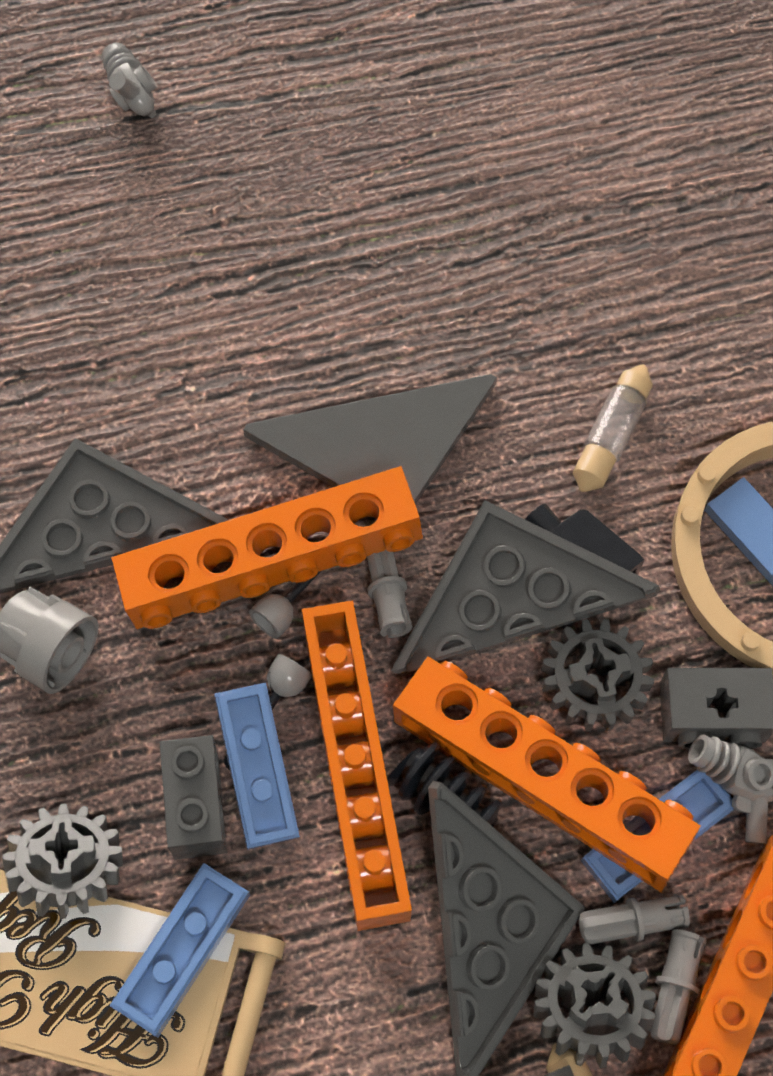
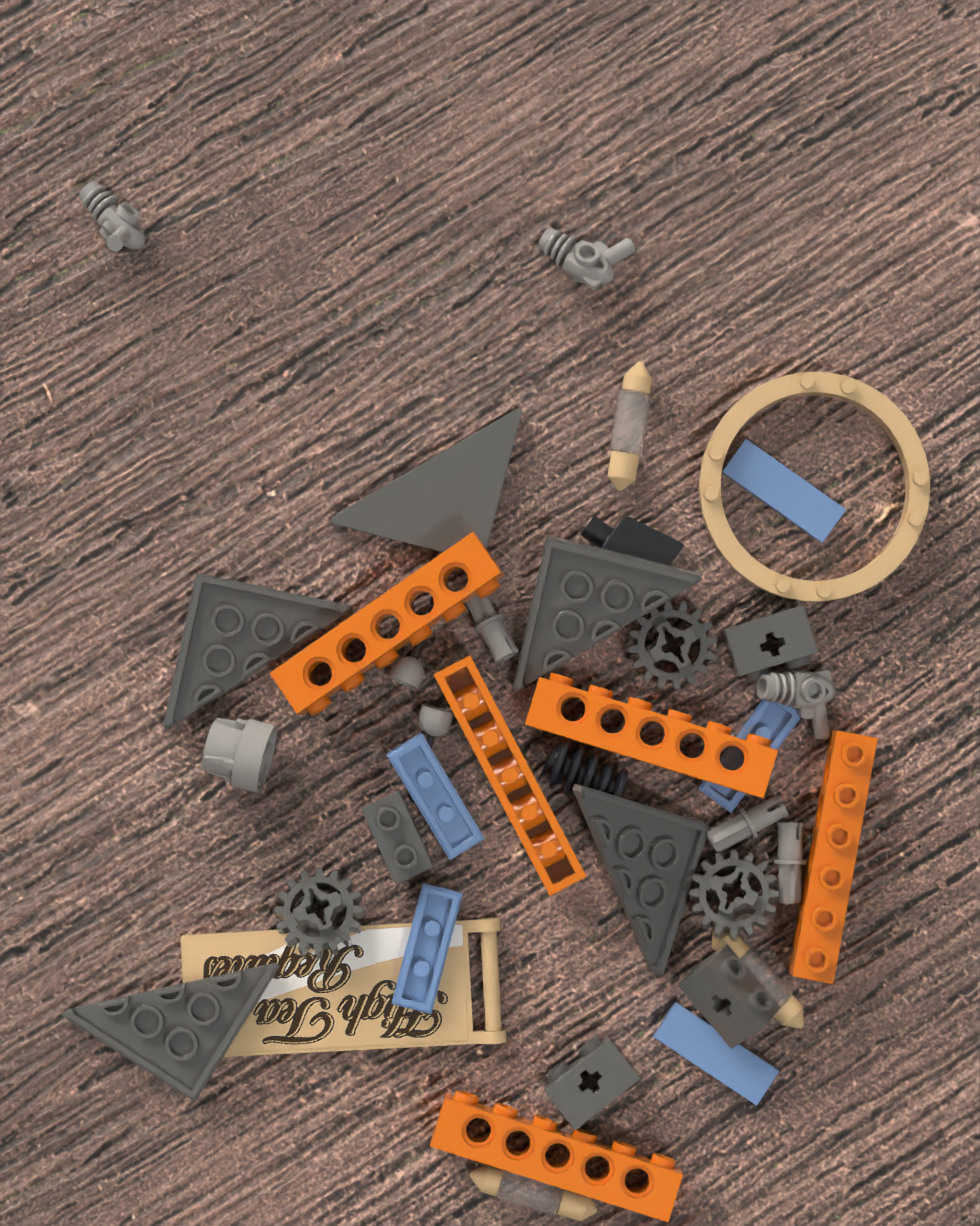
camera: 15 degrees left, 20 degrees up
(610, 247) = (584, 261): none -> light grey piece

